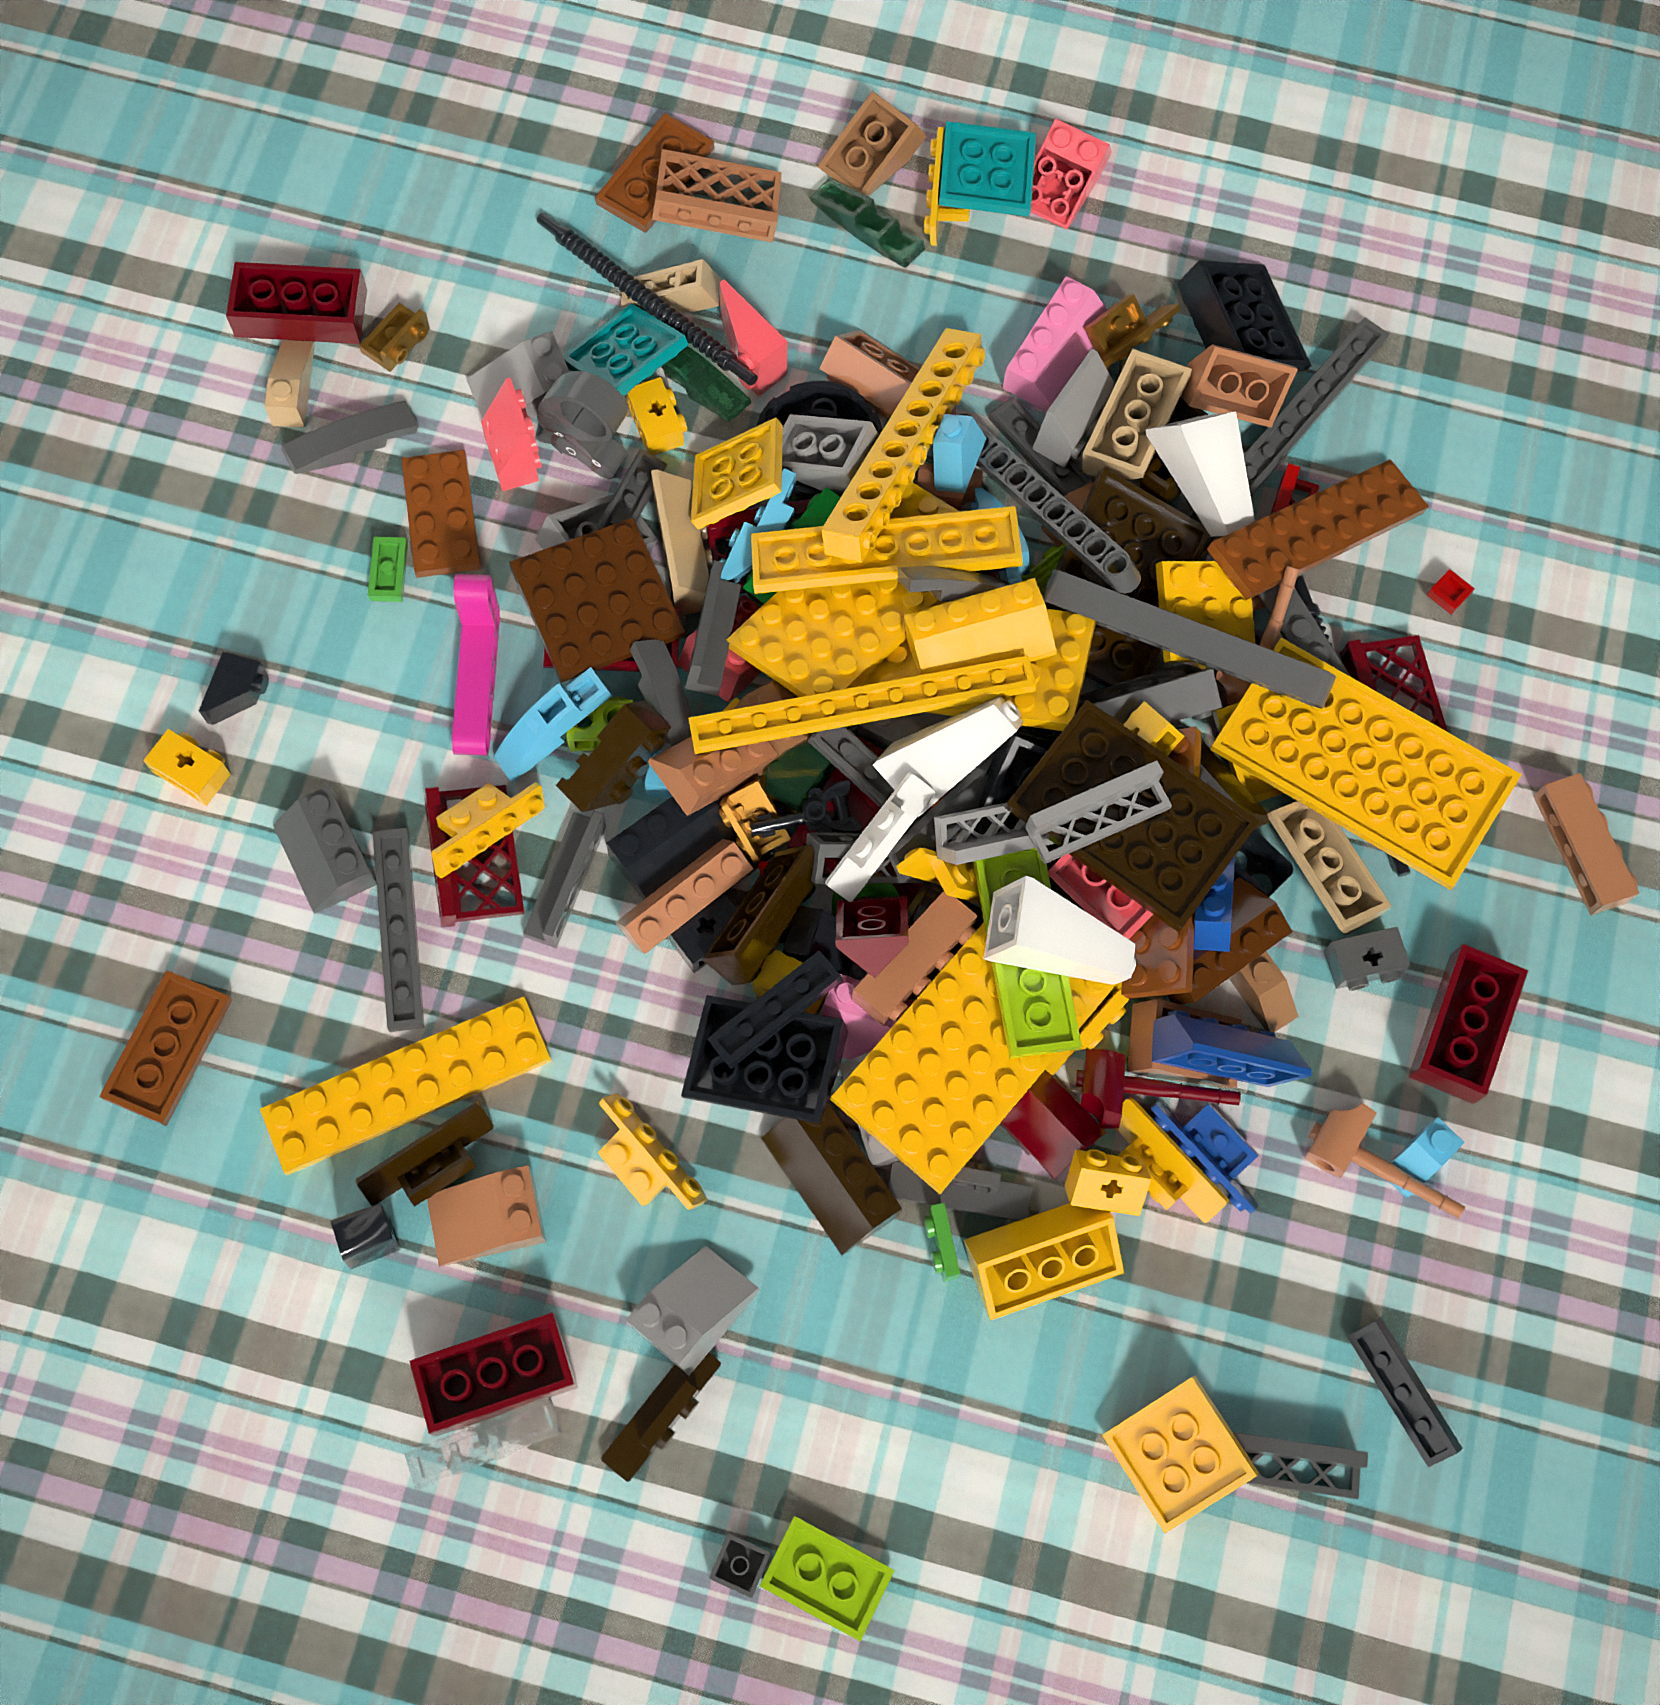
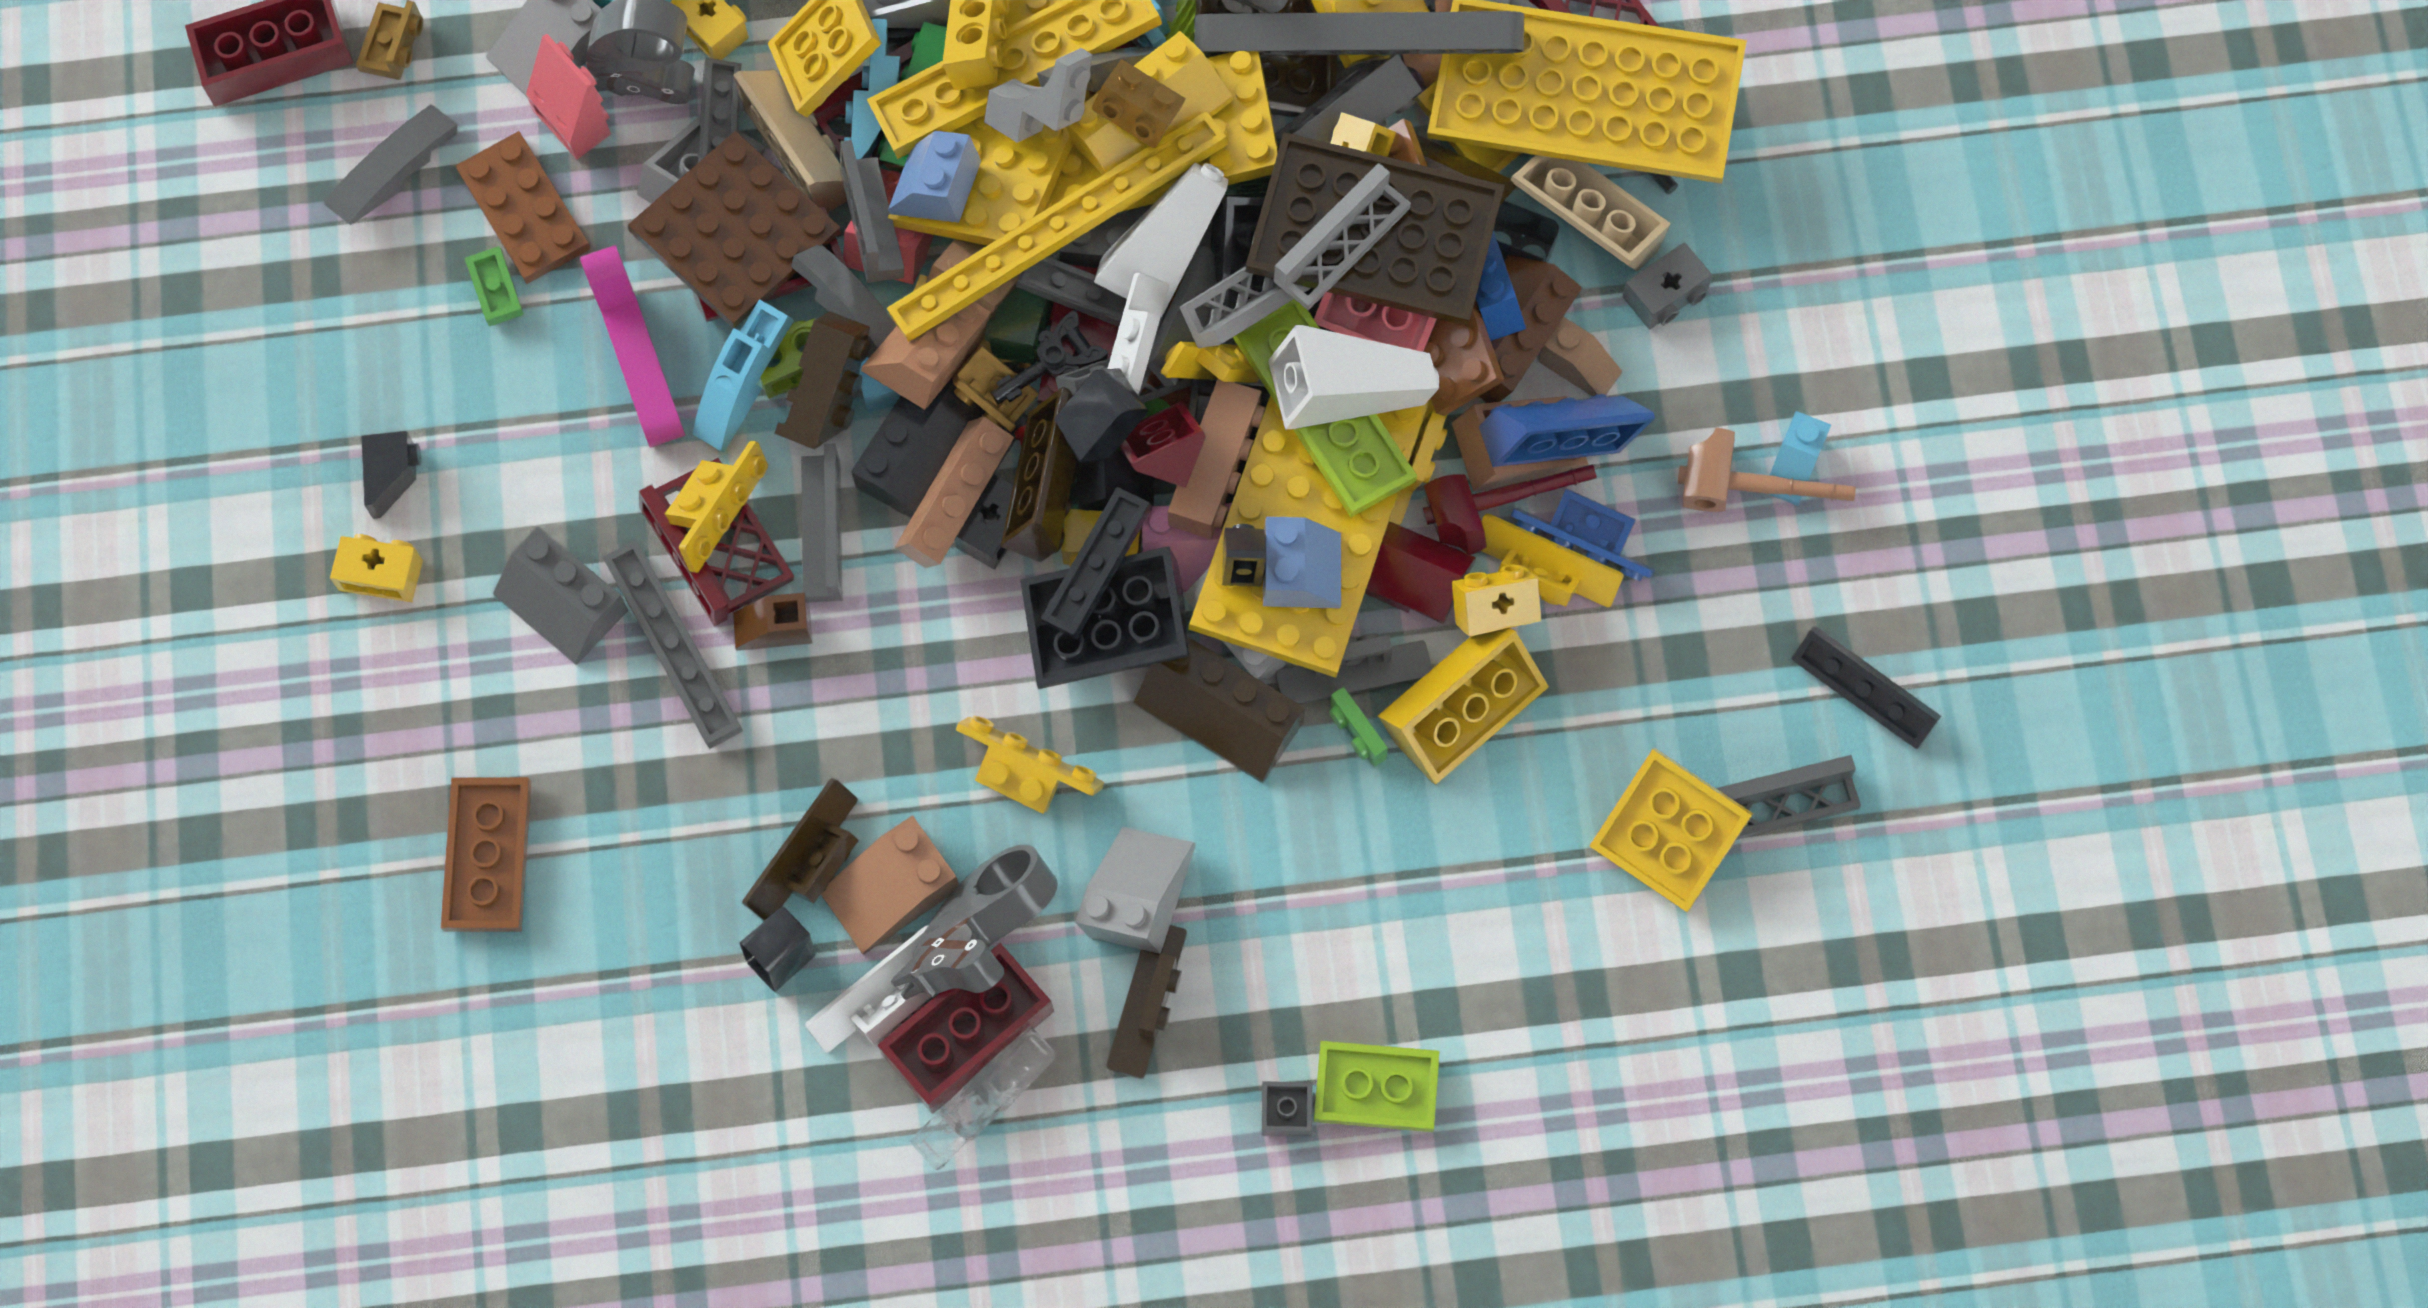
camera: 15 degrees left, 0 degrees up
(290, 384) = (299, 133): tan slope -> none
(404, 1085) = (749, 794): yellow plate -> none
(438, 1312) = (870, 1003): none -> white bracket
(488, 946) = (773, 622): none -> reddish brown slope
(541, 1280) = (973, 917): none -> dark grey animal
(779, 623) = (937, 178): none -> medium blue slope
(828, 884) = (1100, 415): none -> black piece
(875, 594) = (1024, 109): none -> light grey arch
(901, 1056) = (1243, 556): none -> black slope
(948, 1084) = (1301, 564): none -> medium blue slope
(971, 626) = (1137, 103): none -> pearl gold bracket
(1468, 1024) = (1791, 310): dark red brick -> none
(1586, 844) = (1841, 87): nougat brick -> none

